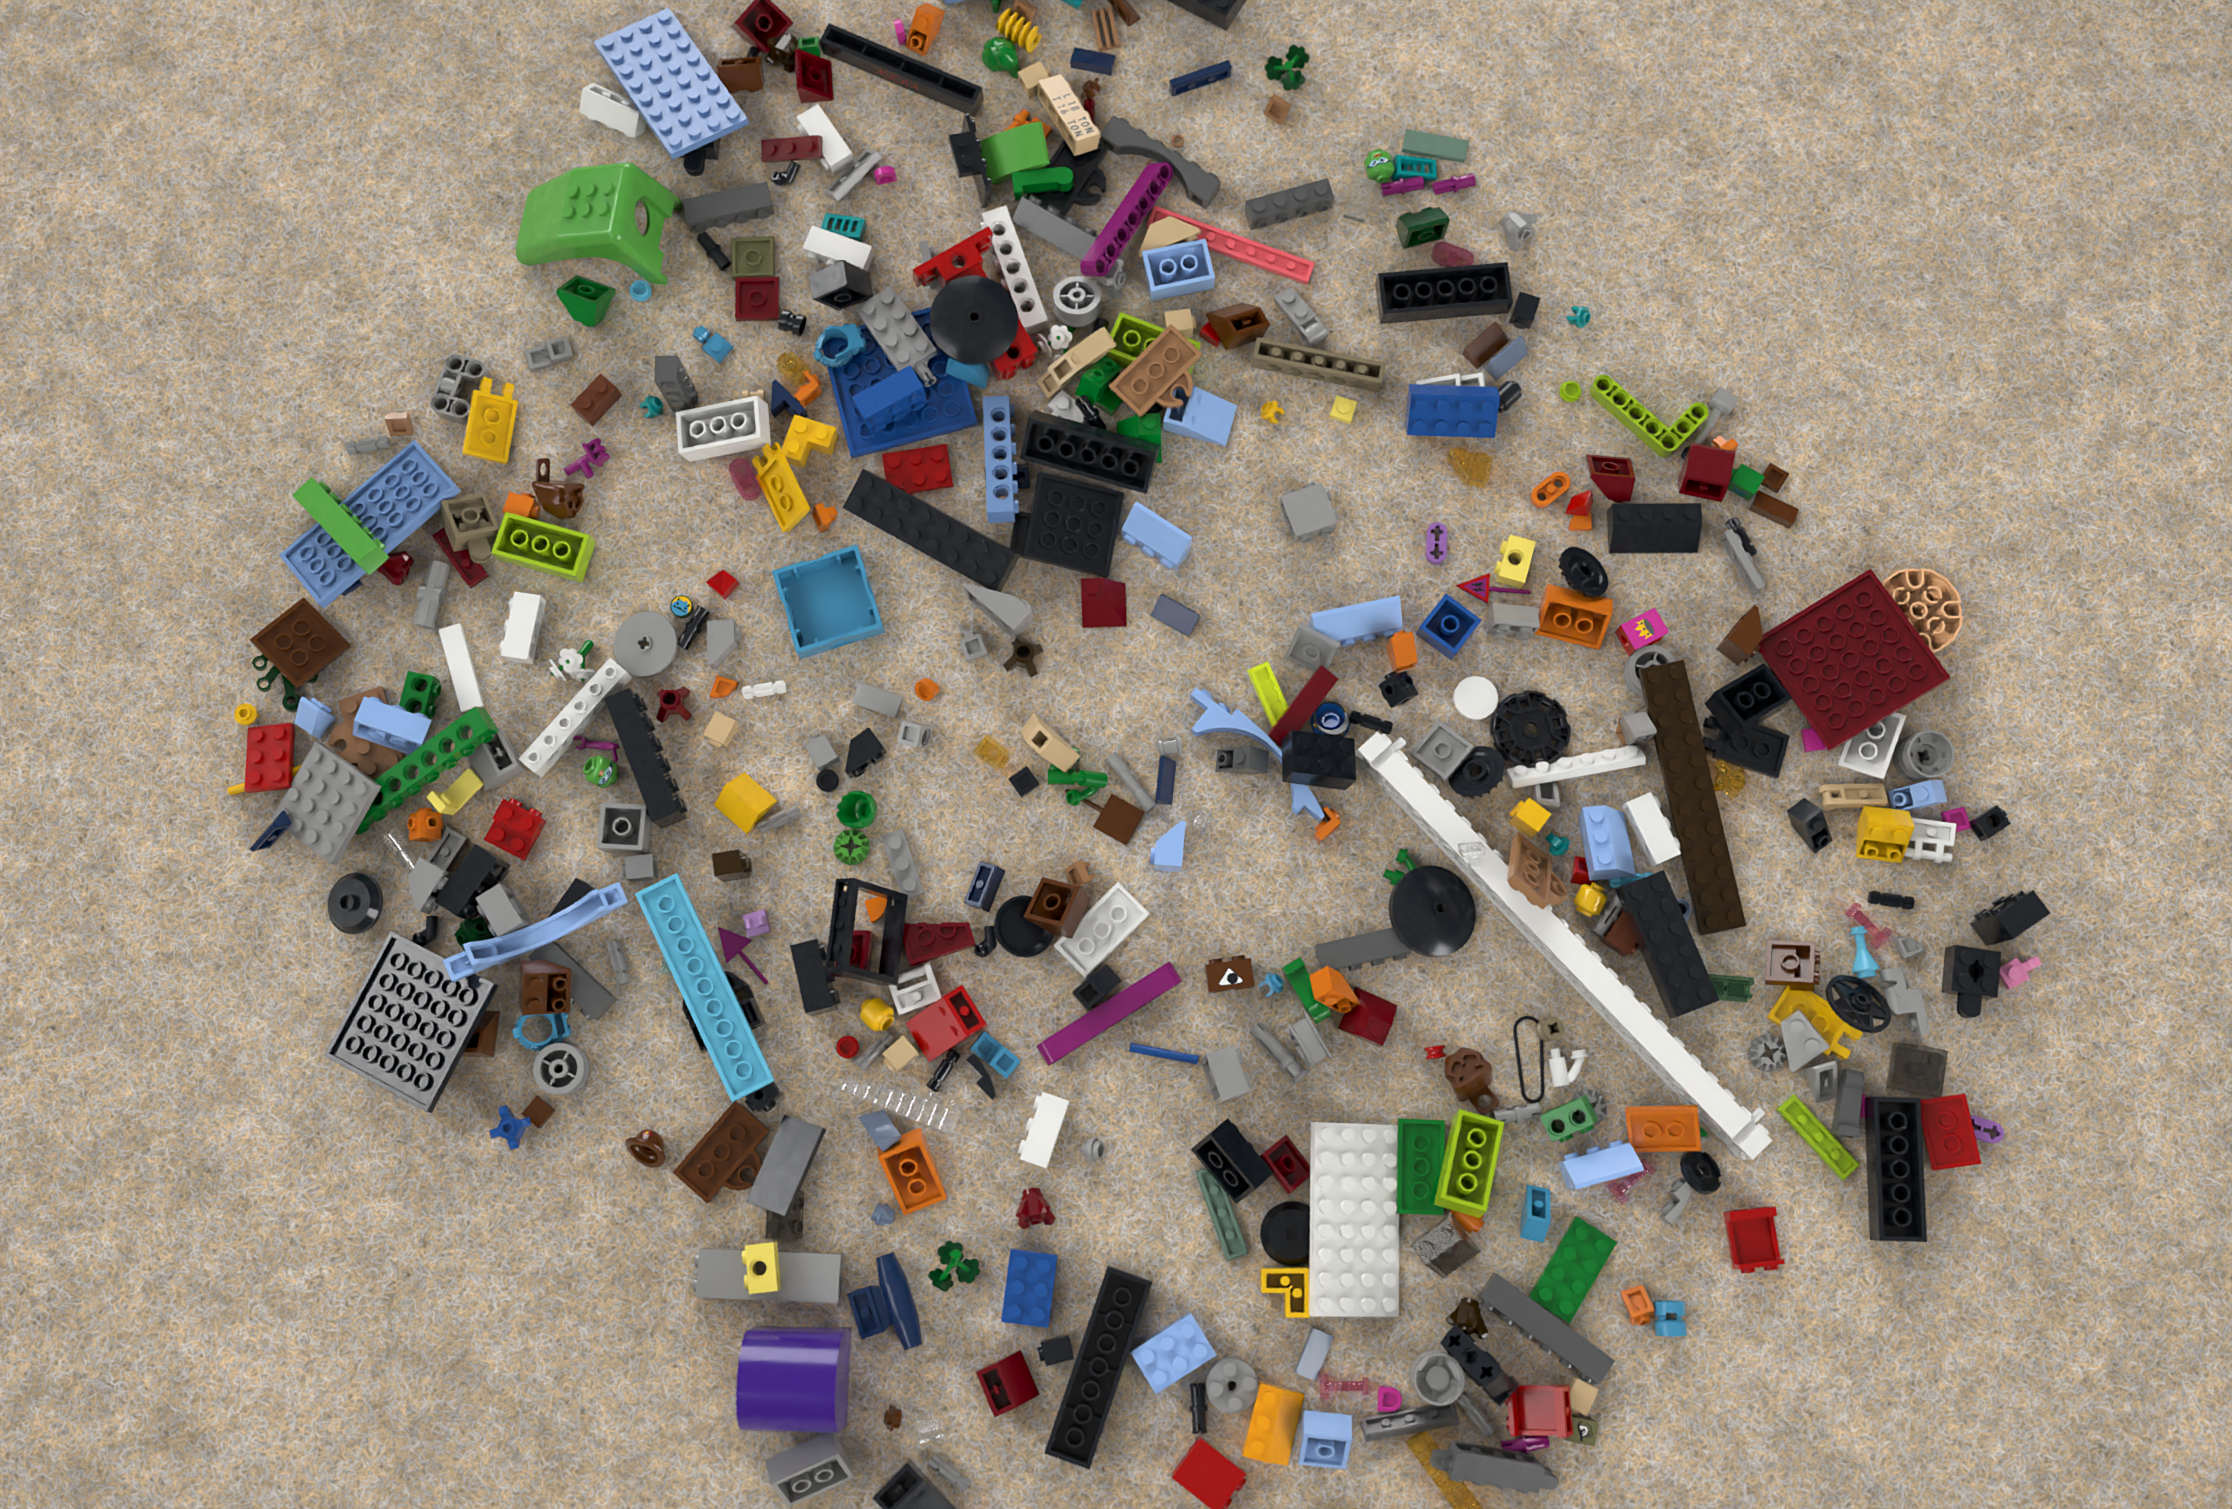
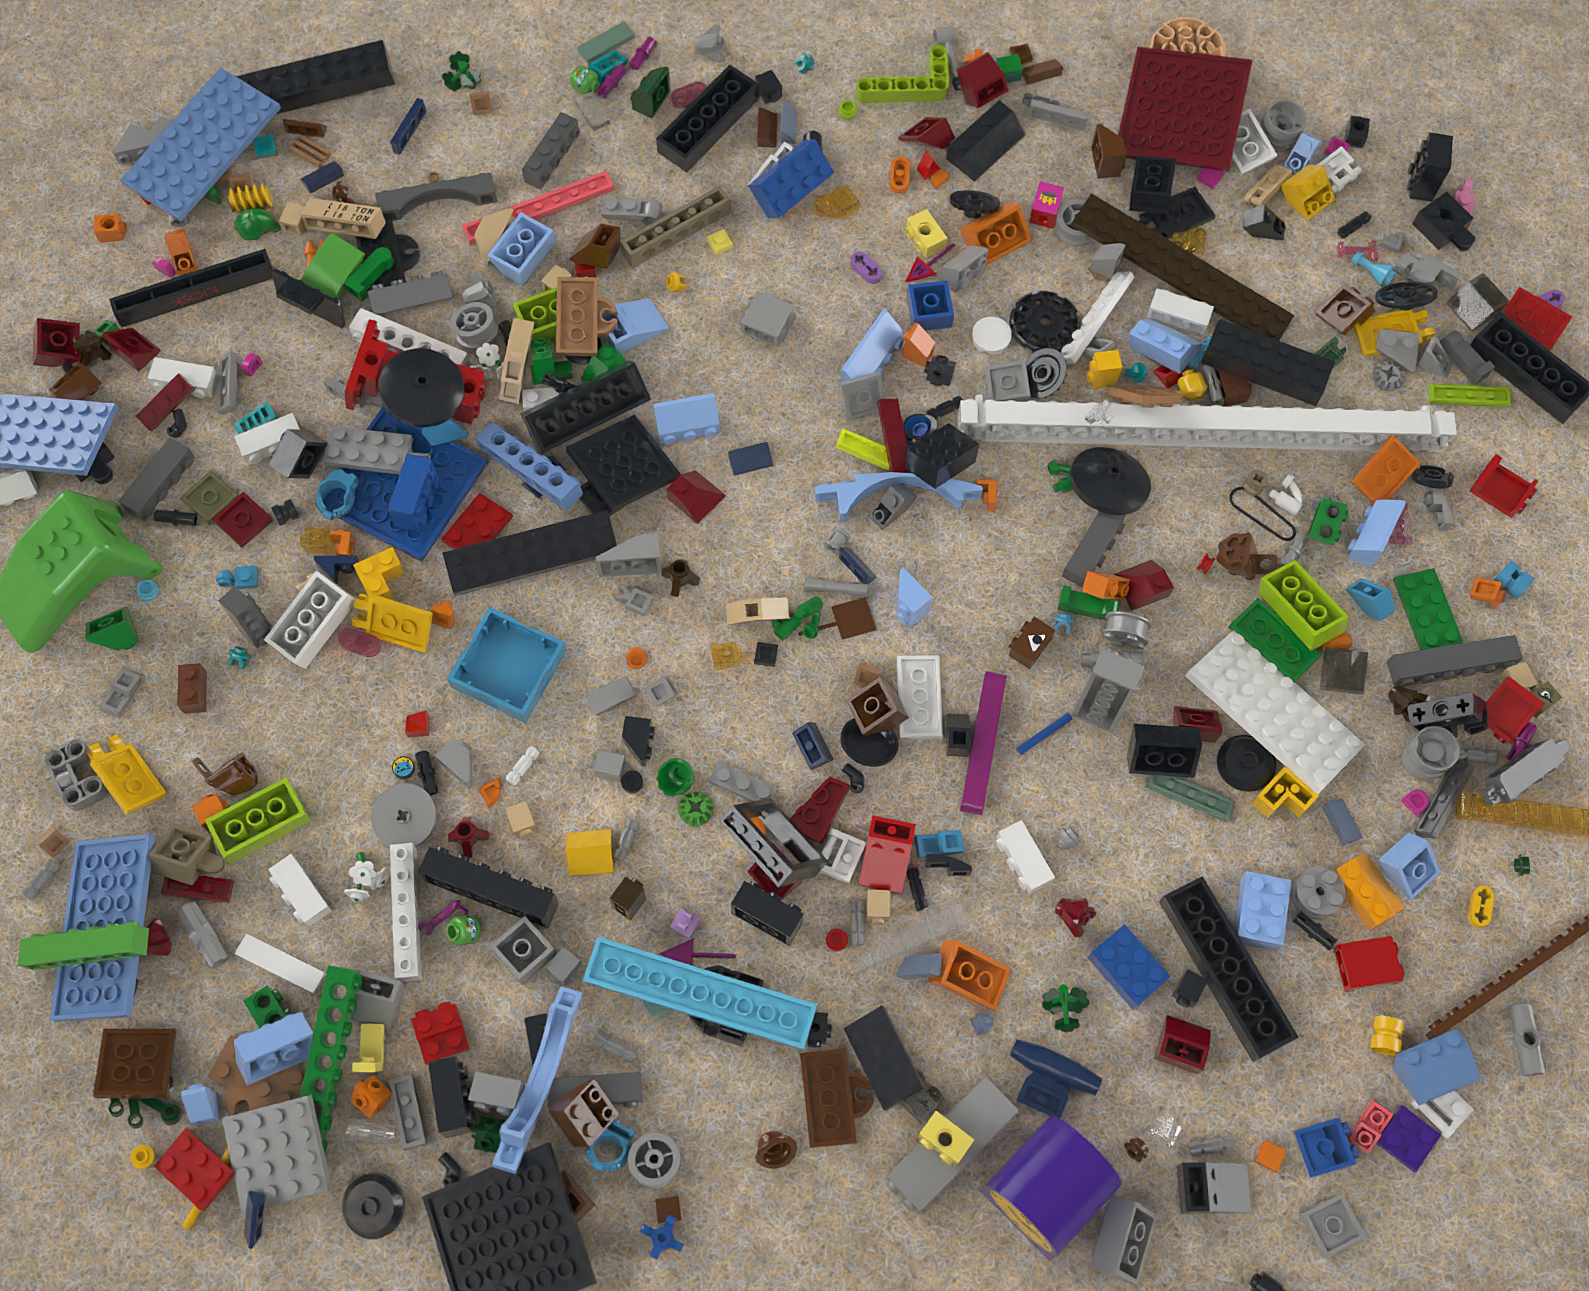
camera: 50 degrees left, 10 degrees down
(426, 883) = (418, 1127): light grey slope -> none
(591, 456) = (225, 739): magenta arm -> none
(876, 1014) = (833, 897): yellow head -> none
(1126, 219) = (454, 247): magenta beam -> none
(1326, 1386) = (1372, 834): clear pink piece -> none

